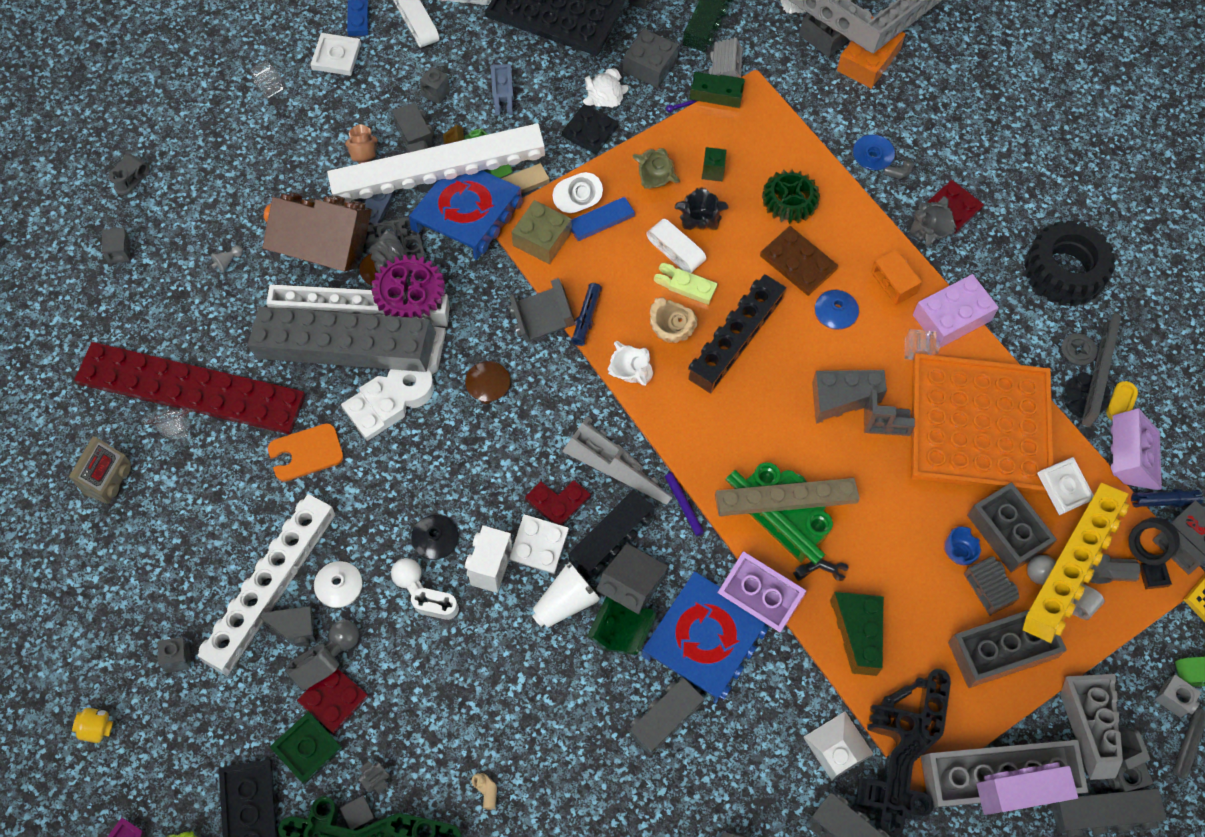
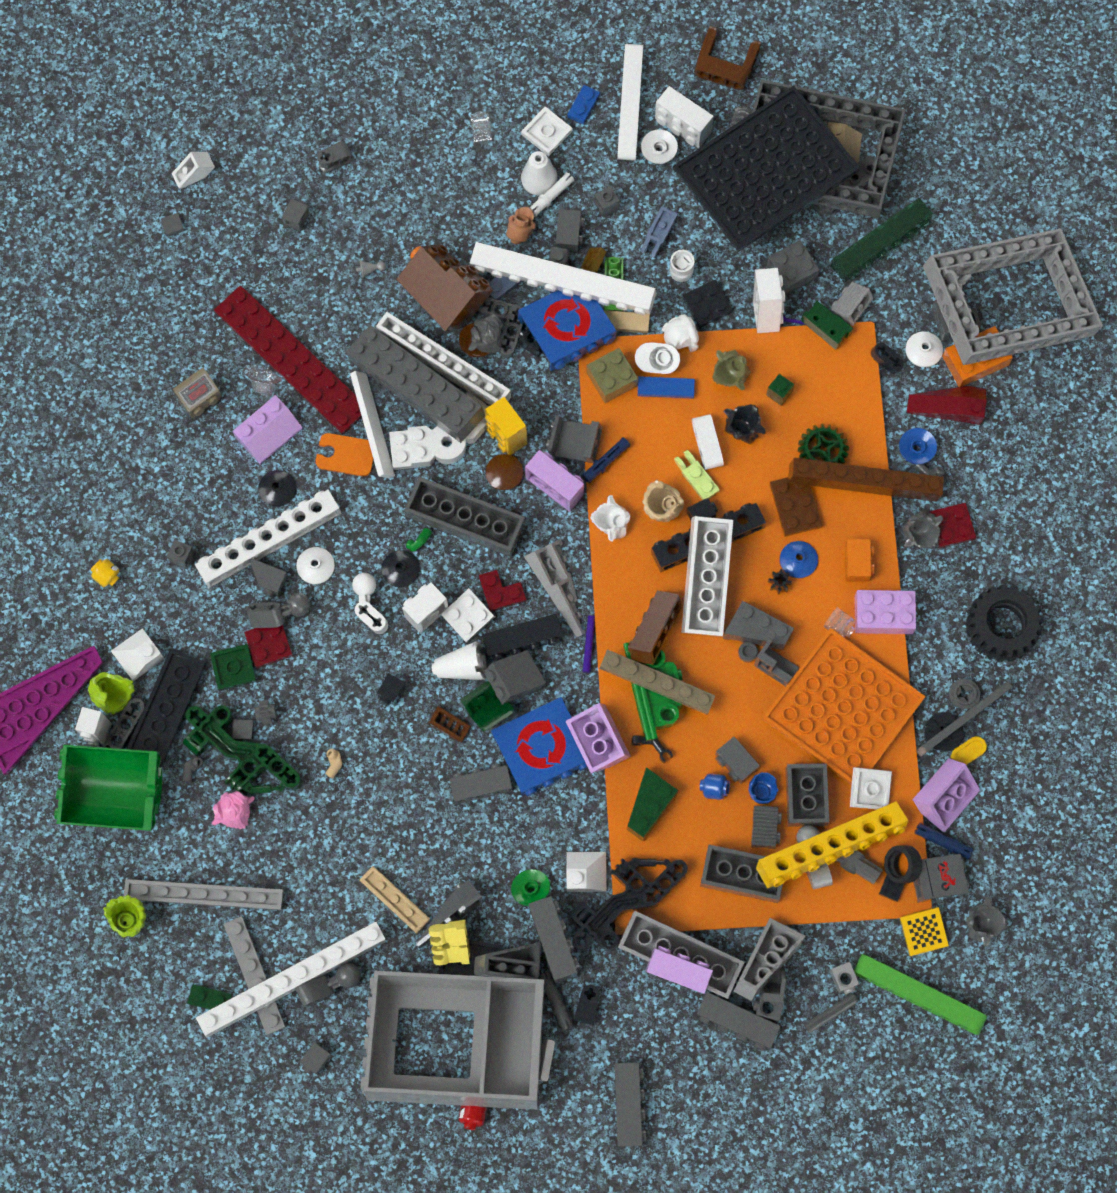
camera: 35 degrees right, 10 degrees up
(182, 798) = (137, 654): none -> white slope
(202, 470) = (267, 429): none -> lavender slope
(247, 536) = (279, 496): none -> black dish
(318, 406) = (372, 424): none -> white tile
(351, 90) = (538, 174): none -> white cone
(372, 113) = (546, 199): none -> white pin
(387, 286) = (469, 361): magenta gear -> none
(440, 496) = (420, 541): none -> green arm
(443, 250) = (533, 348): none -> black brick
(455, 17) = (659, 139): none -> white dish
(465, 330) = (506, 426): none -> yellow brick
(474, 444) = (464, 516): none -> dark grey brick
(504, 670) = (391, 690): none -> black brick
(545, 105) = (681, 265): none -> white wheel
(547, 358) = (554, 480): none -> lavender brick
(579, 680) = (445, 730): none -> reddish brown slope
(586, 157) = (681, 333): none -> white helmet
(605, 89) = (737, 277): white hair -> none
(651, 89) = (768, 300): none -> white brick
(715, 313) = (702, 509): none -> black brick
(748, 444) = (654, 627): none -> reddish brown brick
(766, 365) = (707, 576): none -> white brick
(791, 92) = (887, 358): none -> black beam
(791, 788) = (530, 880): none -> green dish
(817, 72) = (920, 356): none -> white dish
(835, 337) = (780, 575): none -> black gear
(849, 201) = (865, 479): none -> reddish brown brick
(850, 422) = (747, 652): none -> dark grey tile
(877, 103) = (955, 404): none -> dark red wedge
(913, 573) = (715, 786): none -> blue head
(916, 533) = (736, 760): none -> dark grey brick

